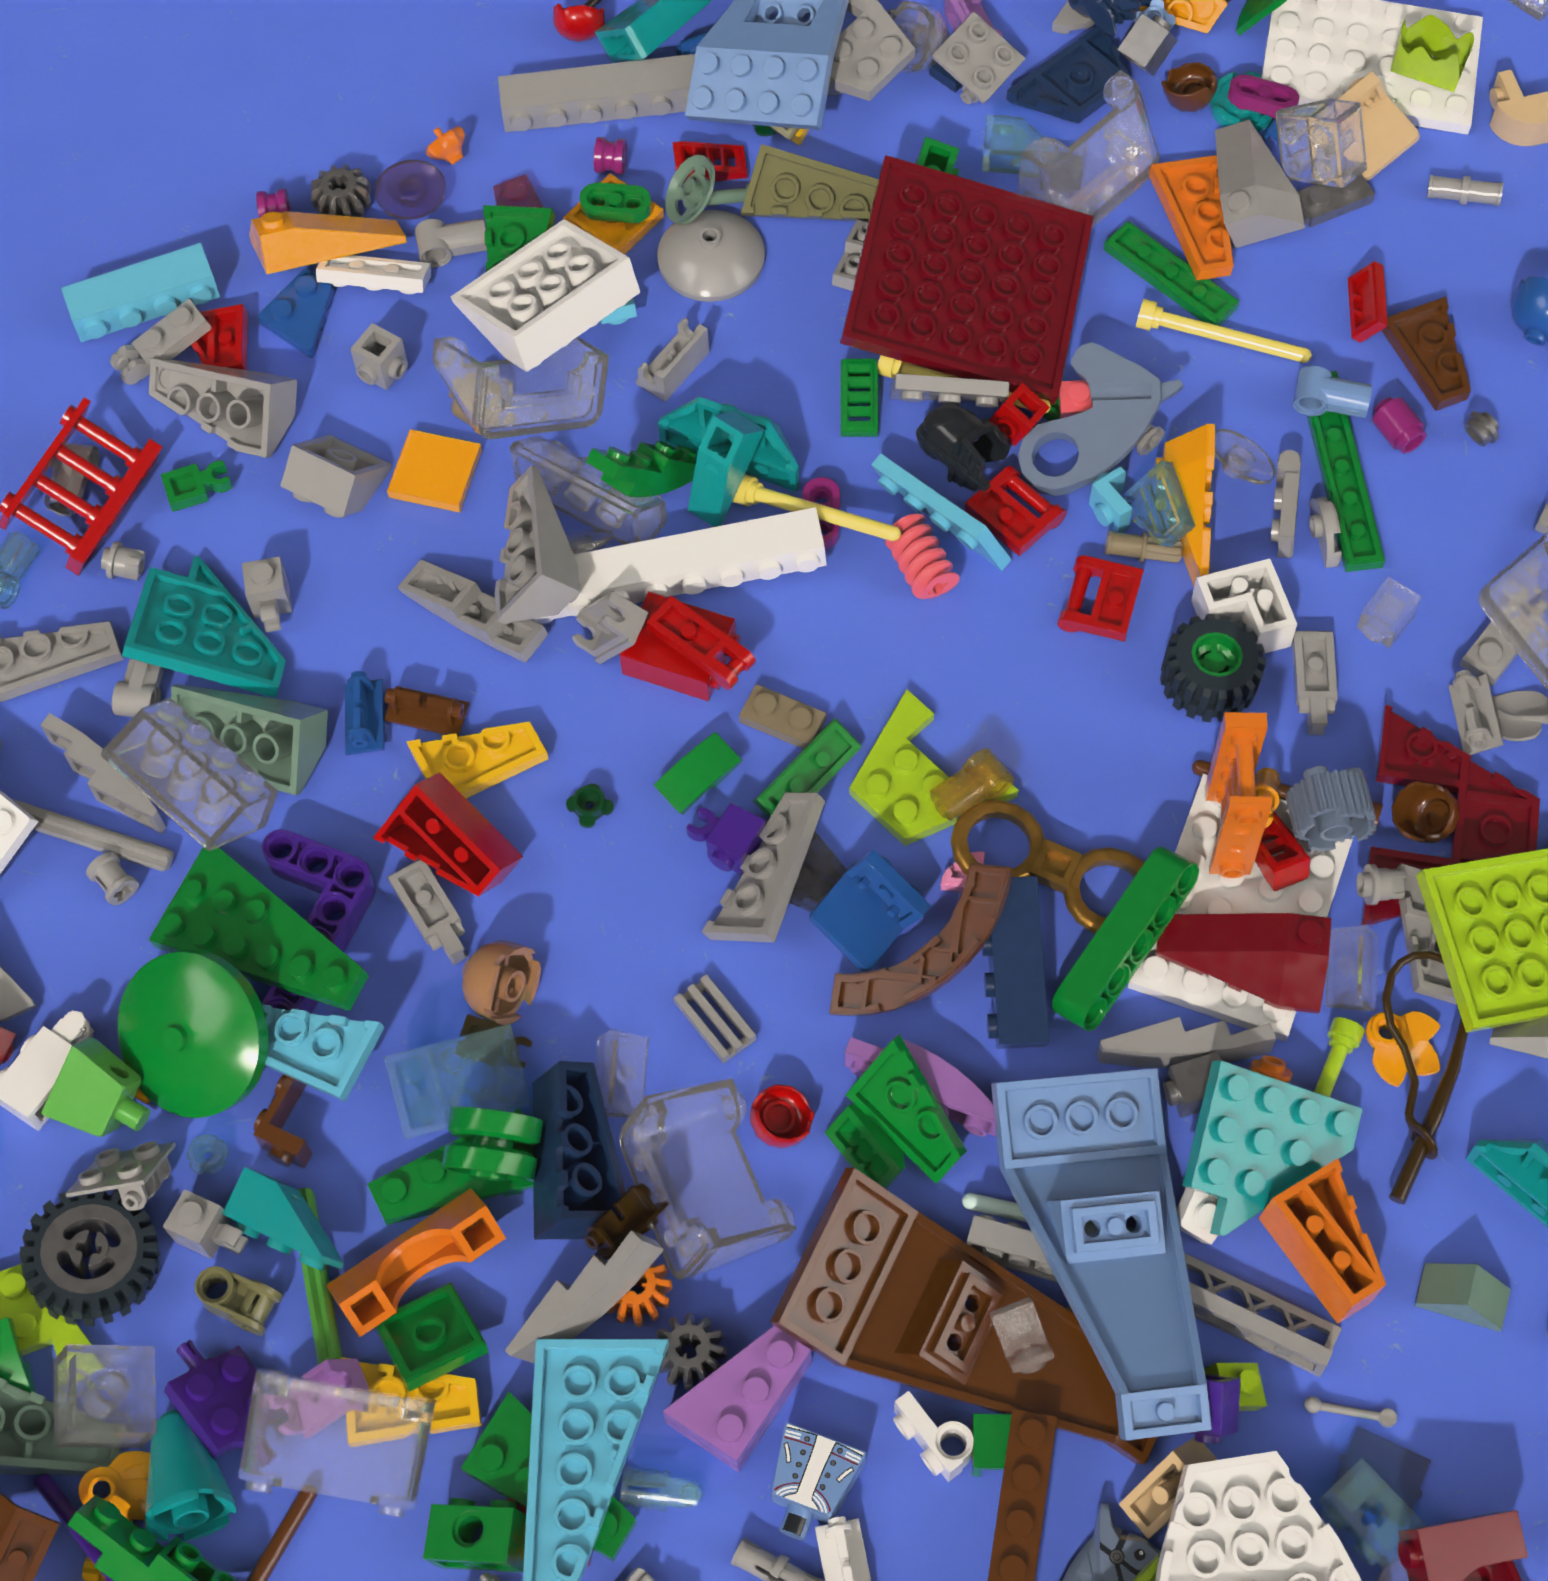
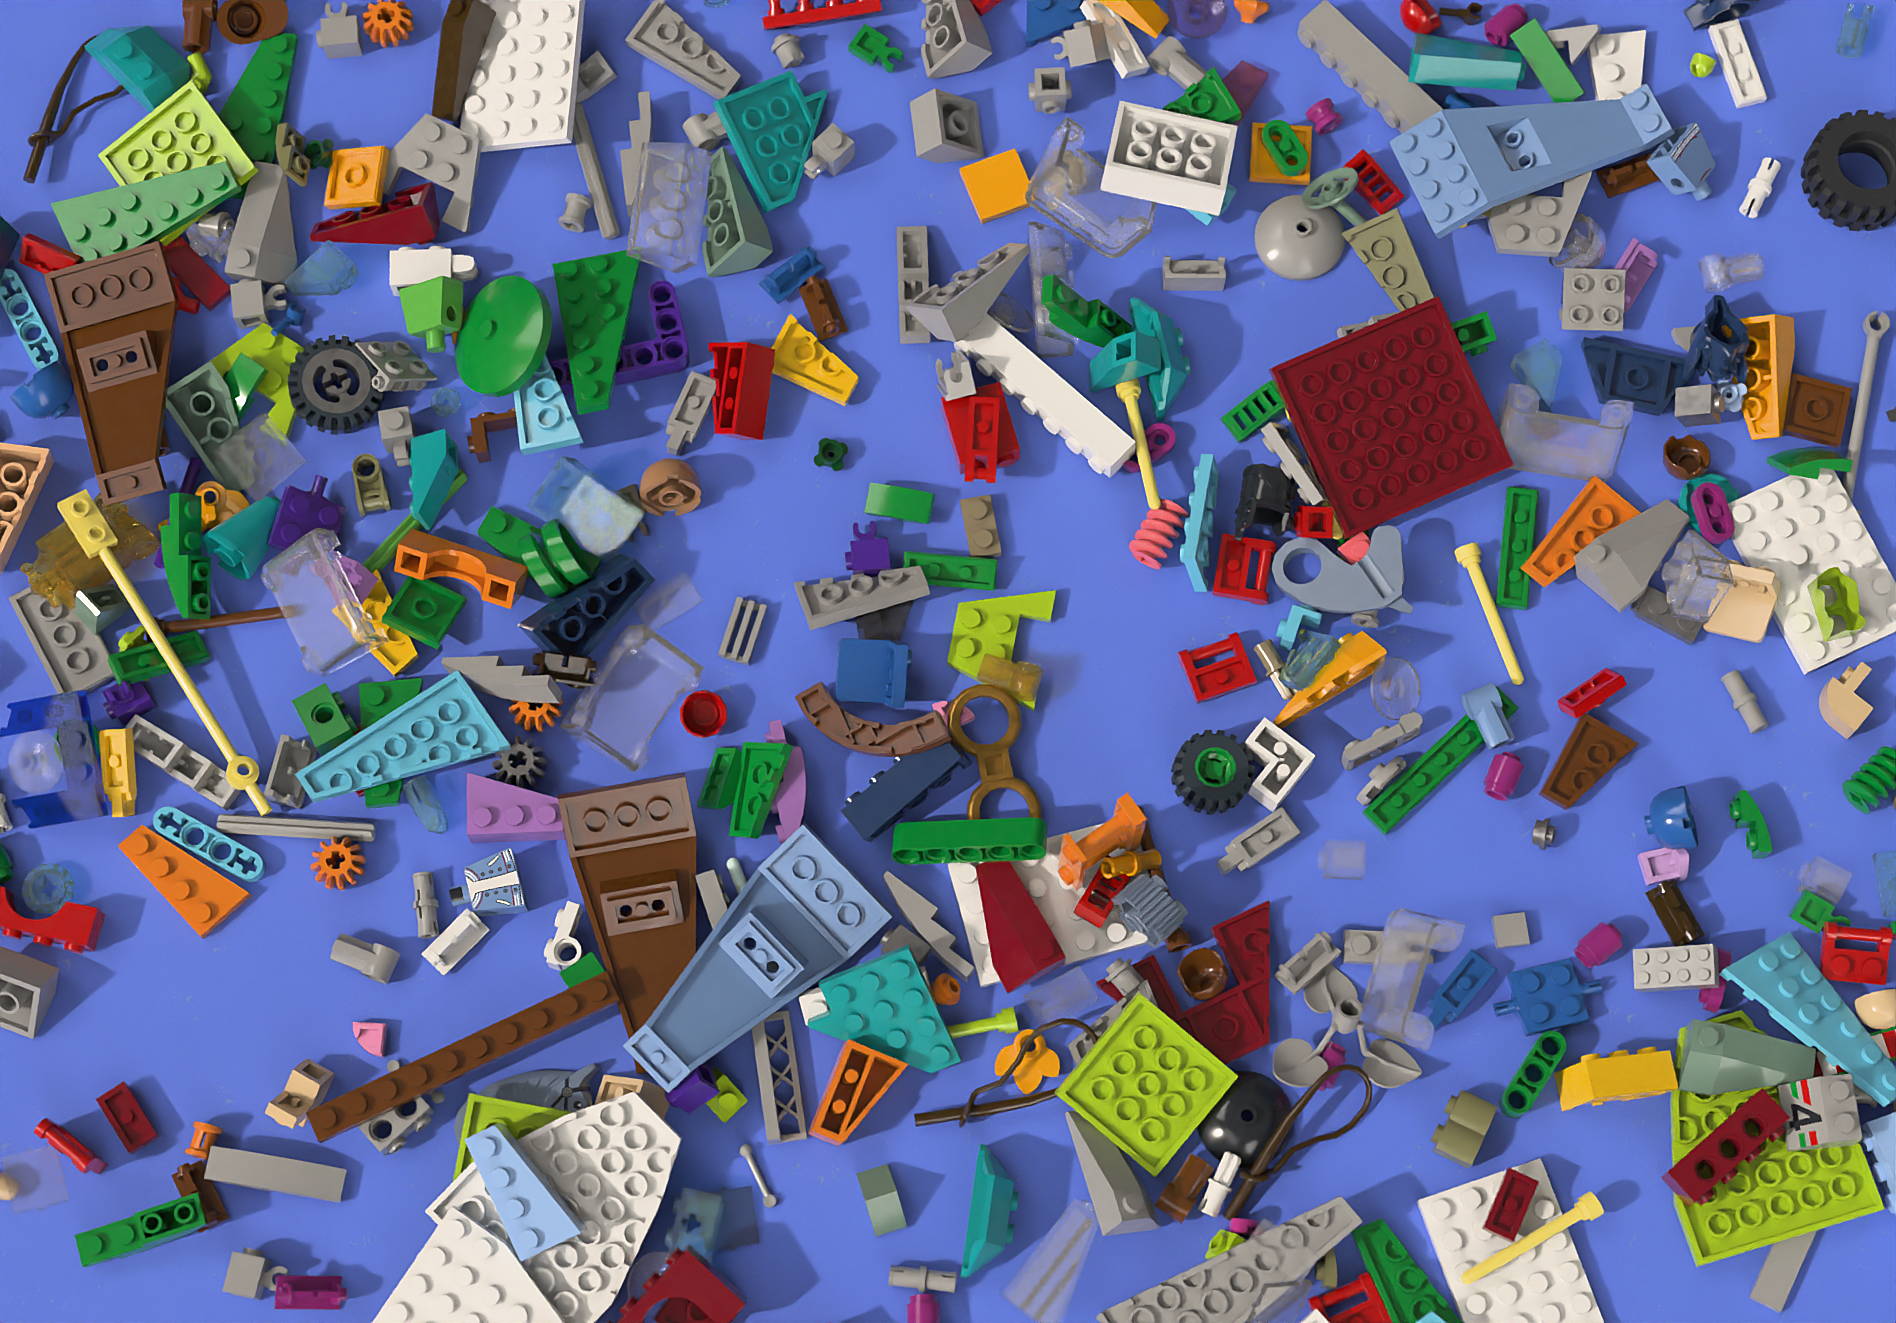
camera: 50 degrees right, 10 degrees up
(360, 297) = (1083, 43): none -> light grey brick
(1022, 1336) = (655, 947): clear bracket -> none

